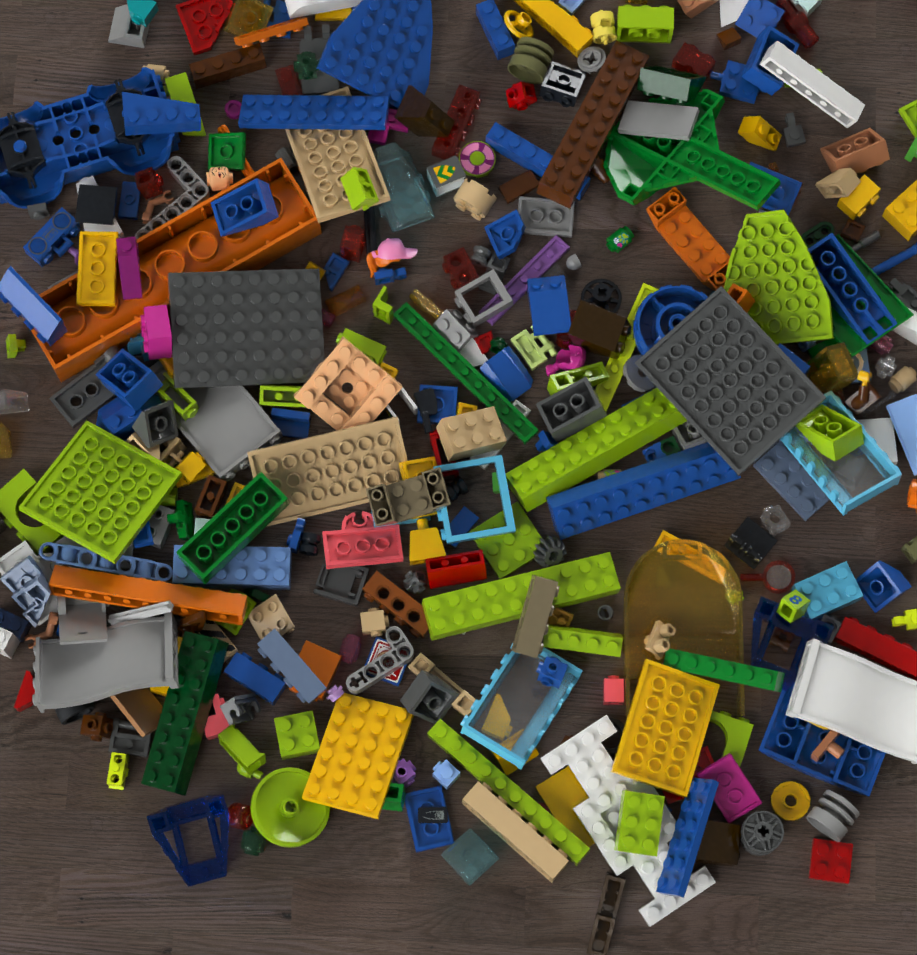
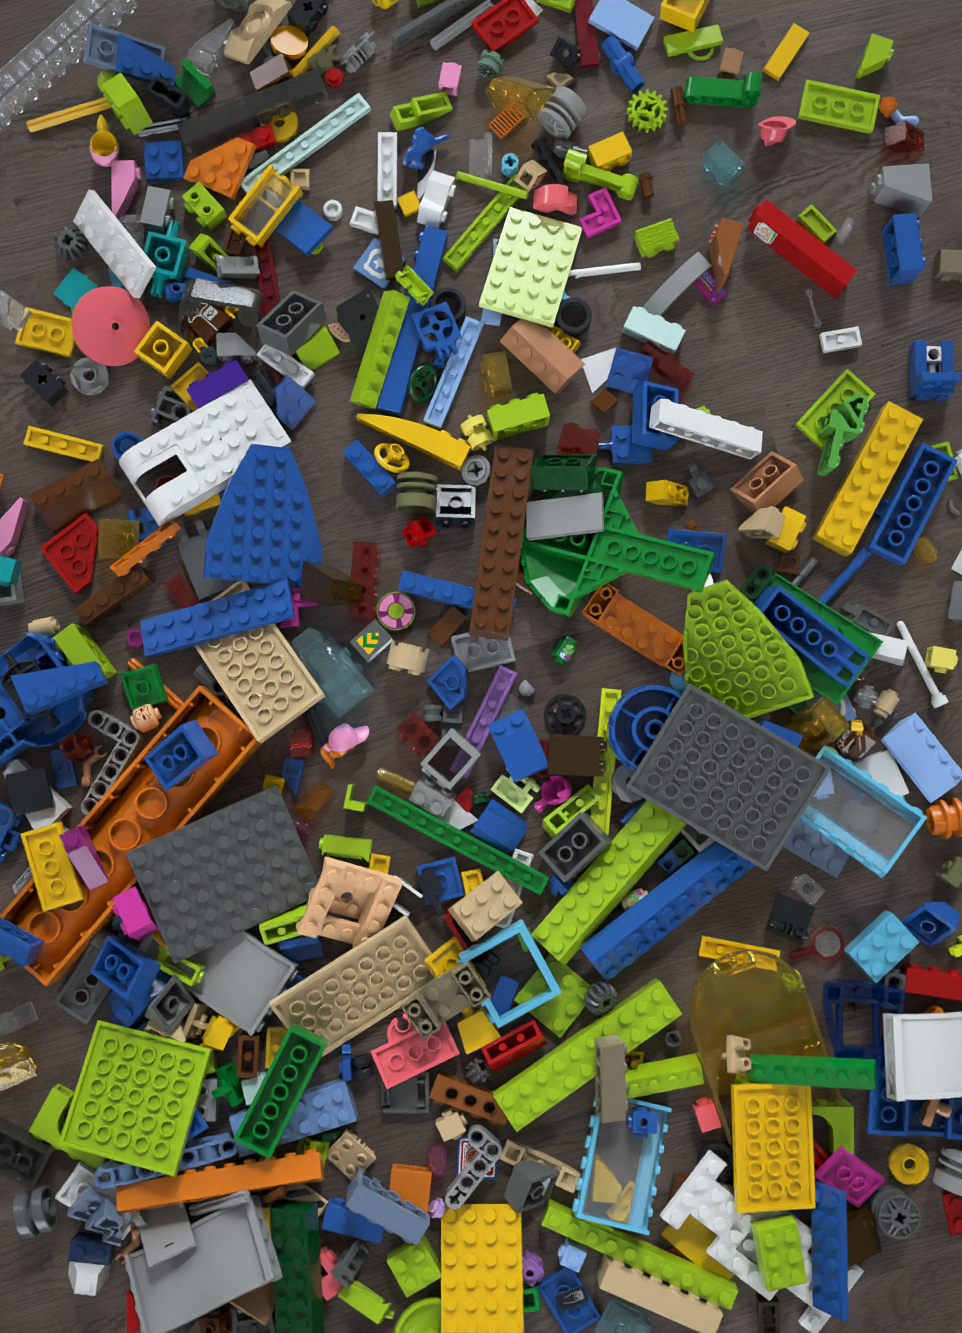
camera: 20 degrees left, 10 degrees up
(306, 65) = (195, 579): clear green brick -> none
(359, 189) = (290, 696): lime hinge -> none
(387, 275) = (344, 763): blue plate -> none
(741, 296) = (709, 684): orange brick -> none
(793, 606) = (857, 980): lime brick -> none
(831, 432) = (845, 794): lime slope -> none

